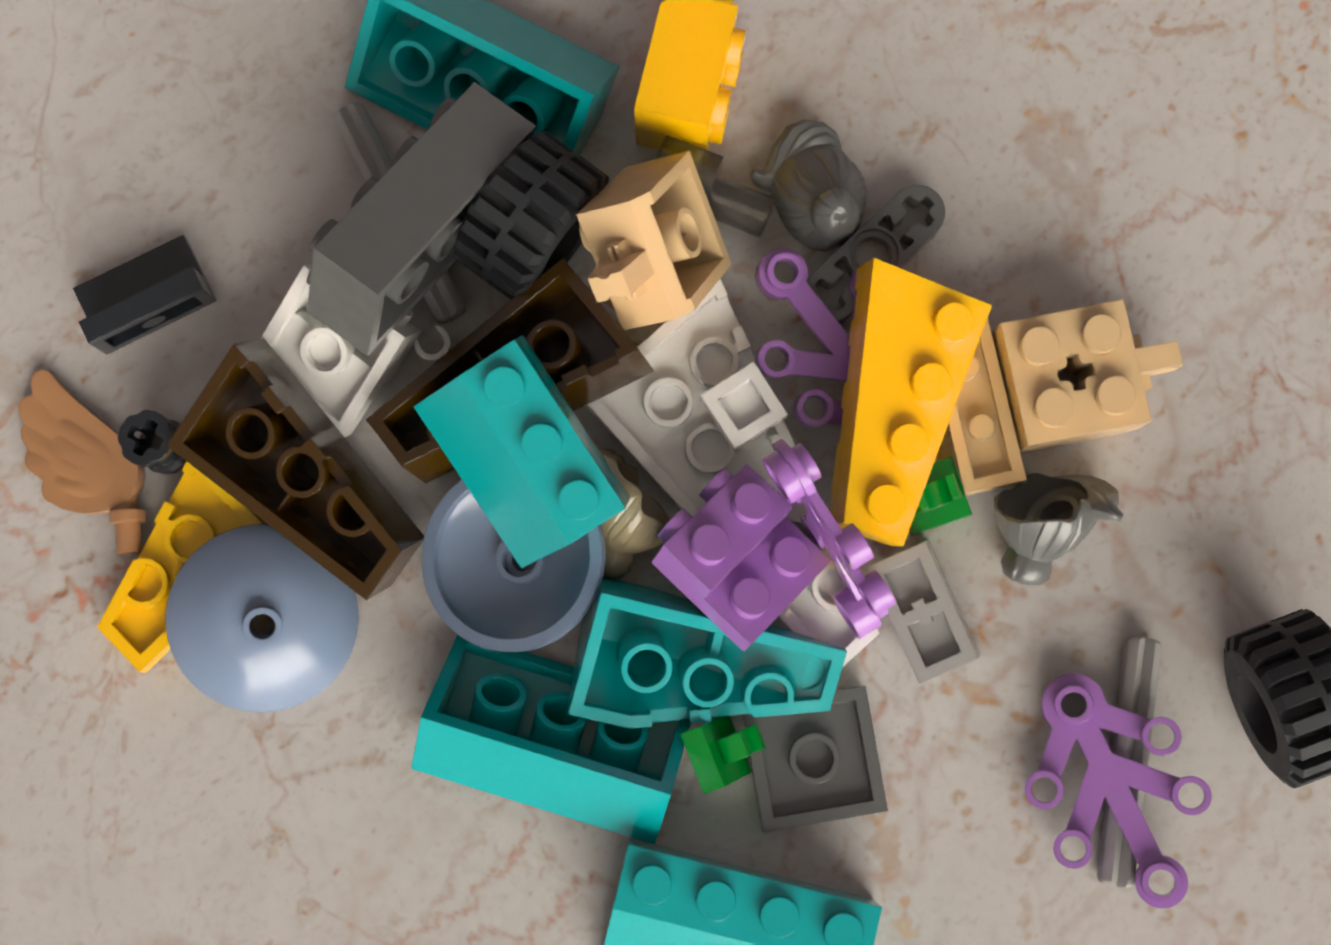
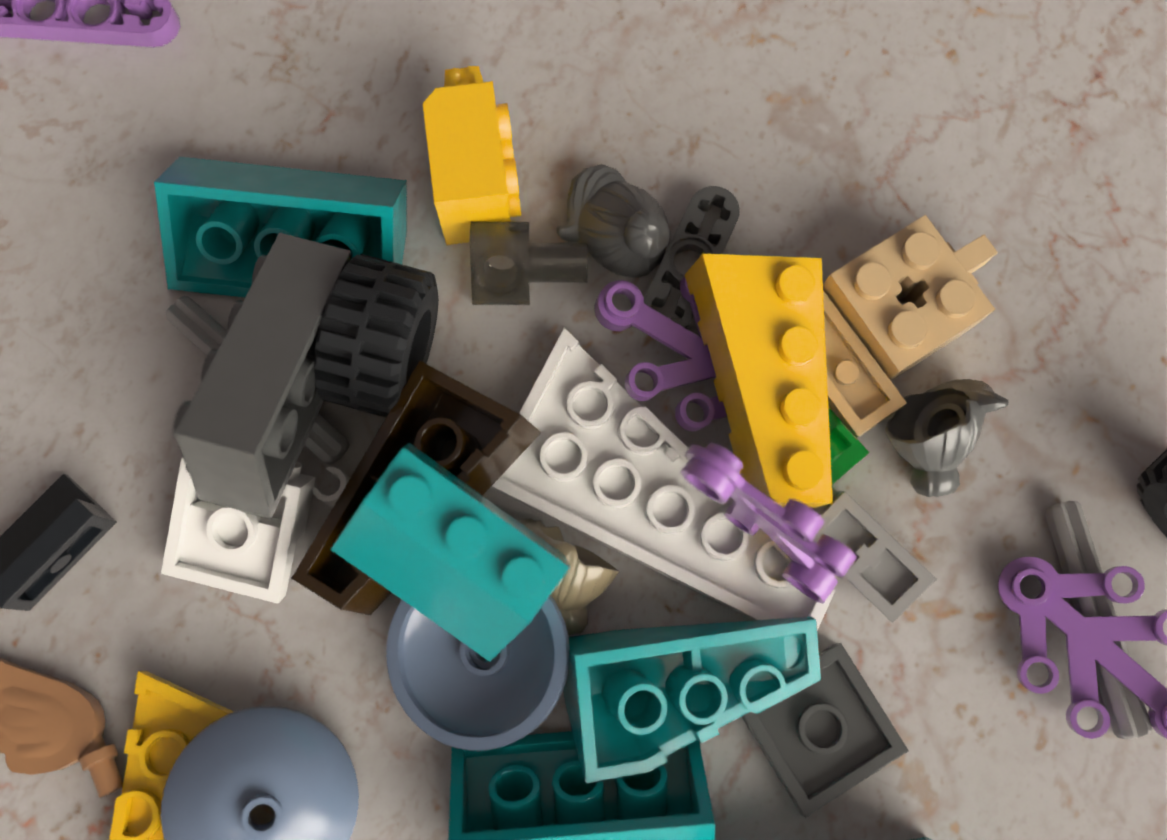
camera: 25 degrees left, 5 degrees down
(139, 449) = (91, 690): black bush -> none
(295, 470) = (240, 652): dark brown wedge -> none
(653, 242) = (496, 317): tan hinge -> none
(721, 752) = (739, 759): green tile -> none
(739, 555) = (686, 571): medium lavender plate -> none
(743, 406) = (634, 433): white plate -> none

